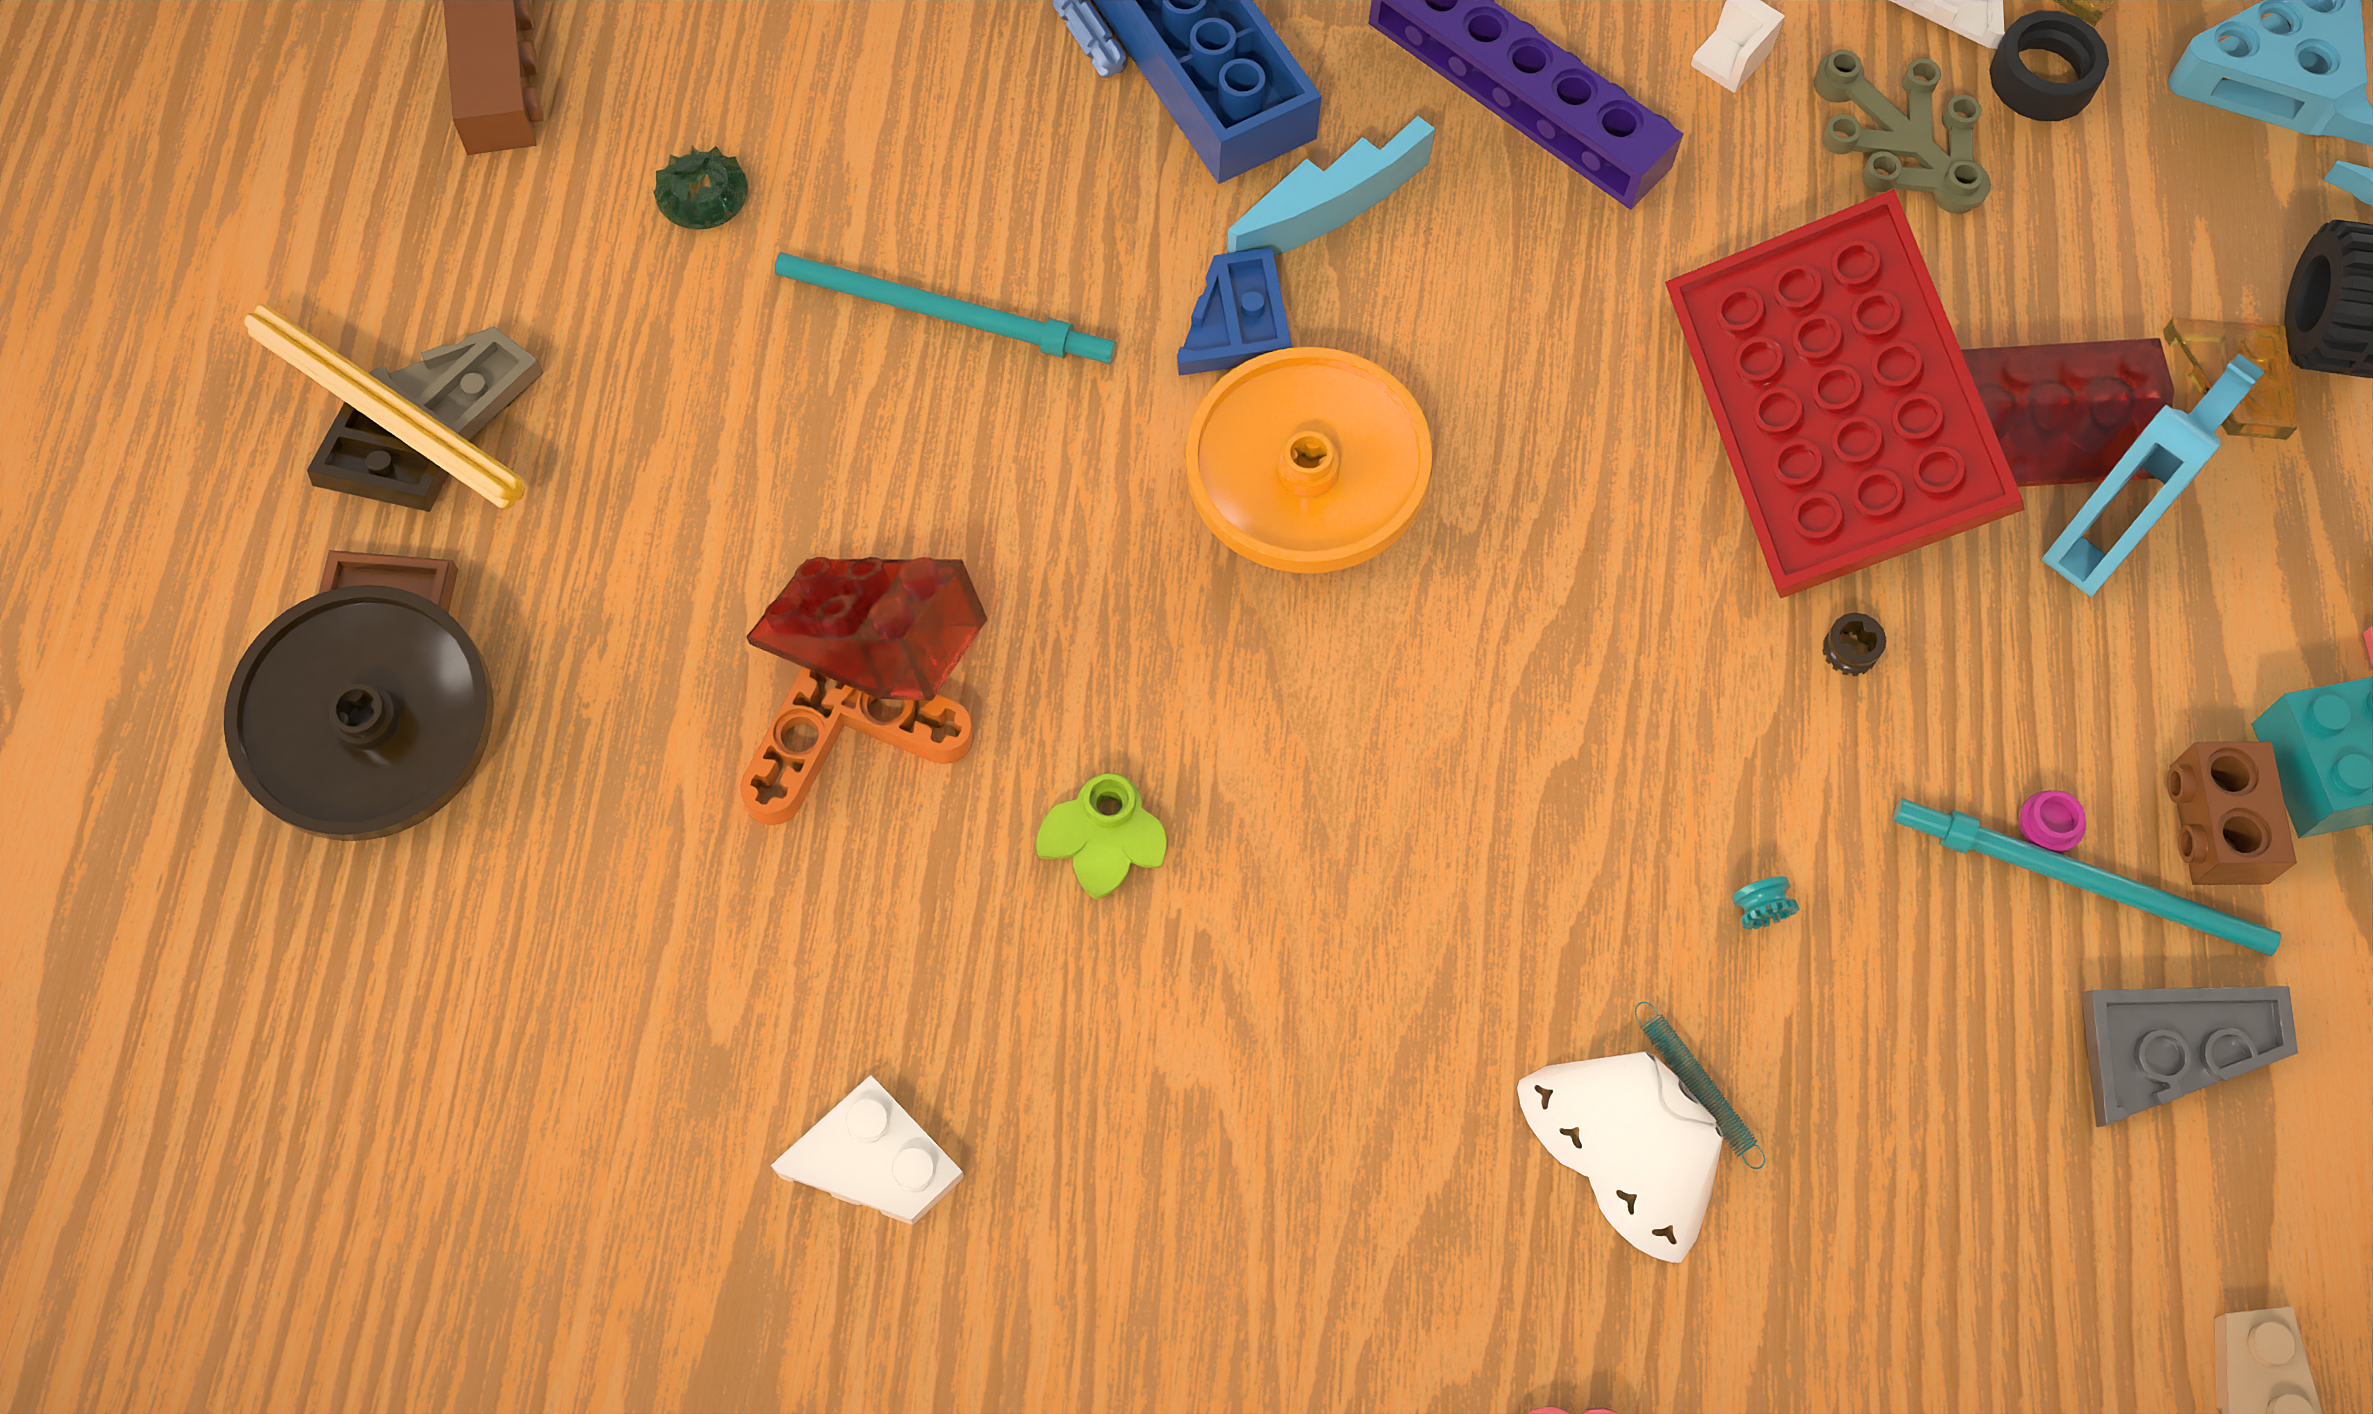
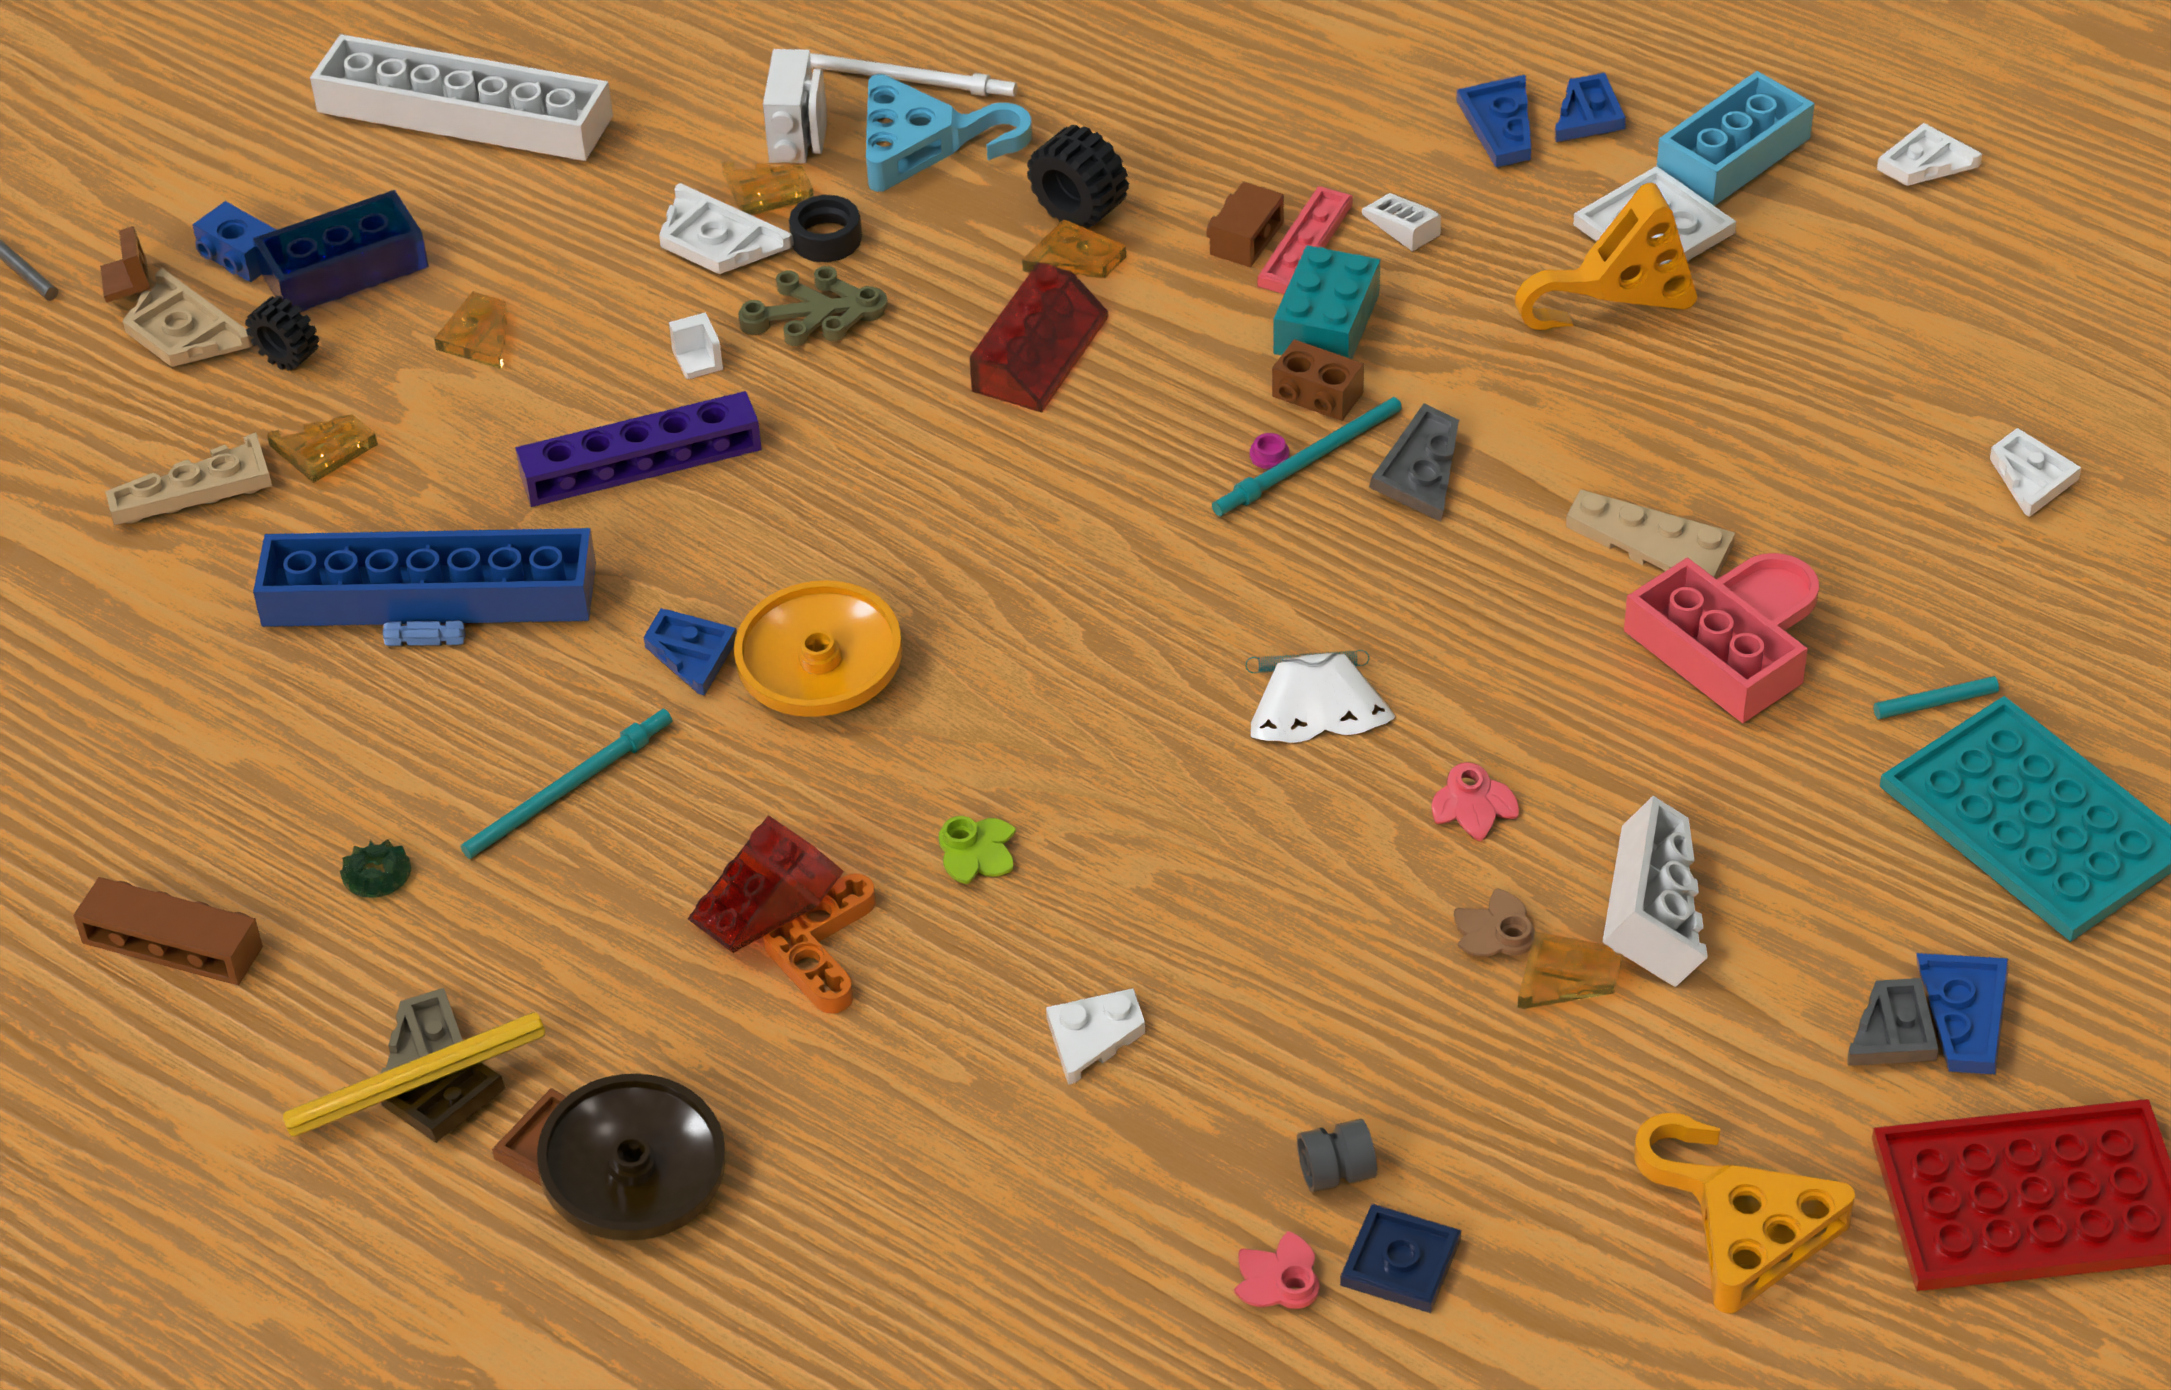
camera: 55 degrees left, 20 degrees down
(1319, 201) = (644, 568): medium azure slope -> none
(1765, 901) = (1228, 584): teal bush -> none
(1842, 396) = (964, 404): red plate -> none
(1842, 654) = (1114, 487): dark brown bush -> none
(2172, 451) = (1117, 281): medium azure piece -> none

